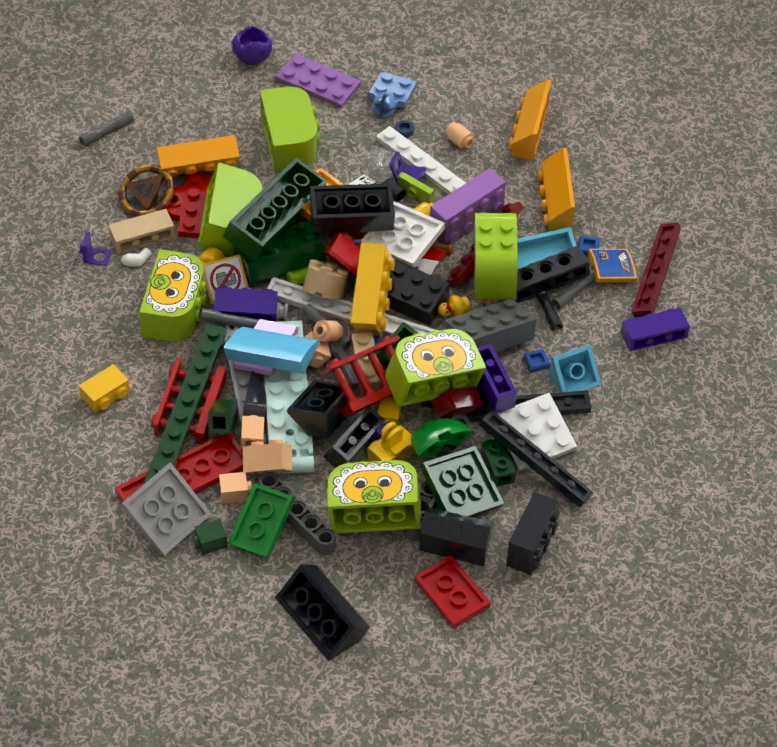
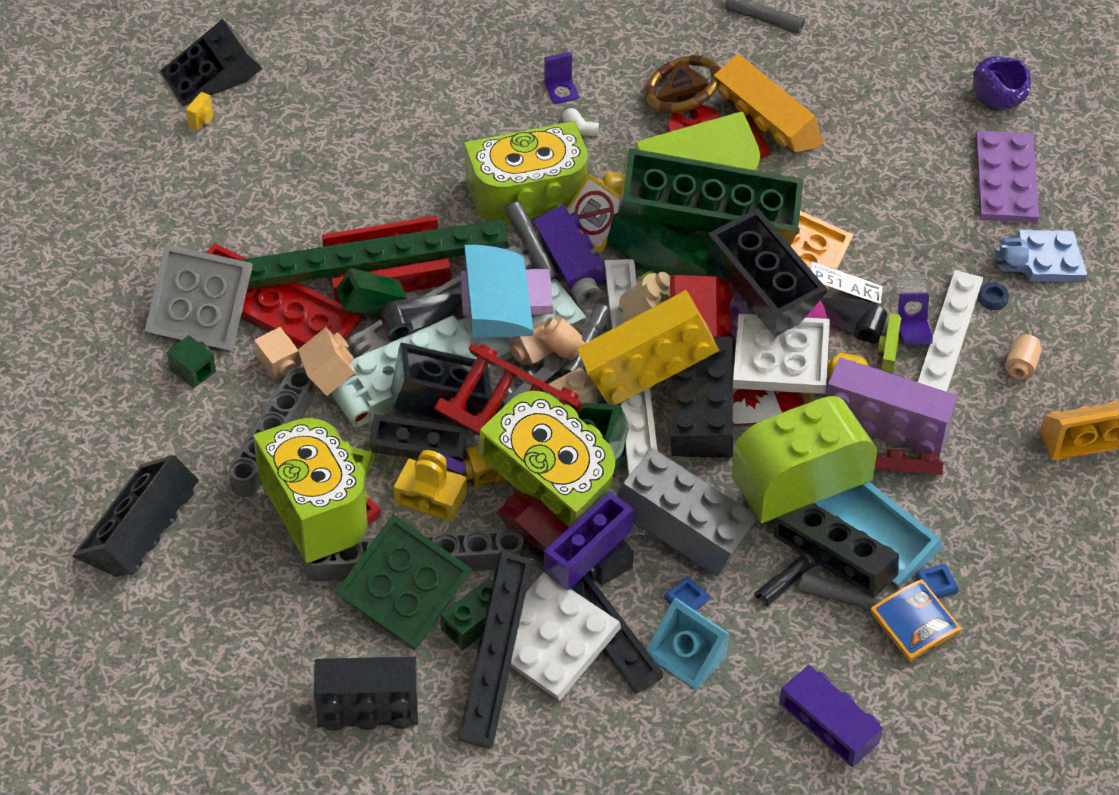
camera: 65 degrees right, 0 degrees up
(104, 388) = (356, 174): yellow brick -> none
(141, 231) = (621, 107): tan brick -> none
(252, 430) = (361, 331): light nougat brick -> none
(261, 521) = (233, 396): green plate -> none
(289, 126) = (883, 172): lime brick -> none
(434, 434) = (464, 517): green brick -> none
(452, 591) = (238, 644): red plate -> none
(454, 306) = (713, 466): yellow animal -> none
(455, 535) = (318, 602): black slope -> none
(556, 191) = (996, 505): light orange slope -> none
(656, 269) = (947, 678): dark red plate -> none

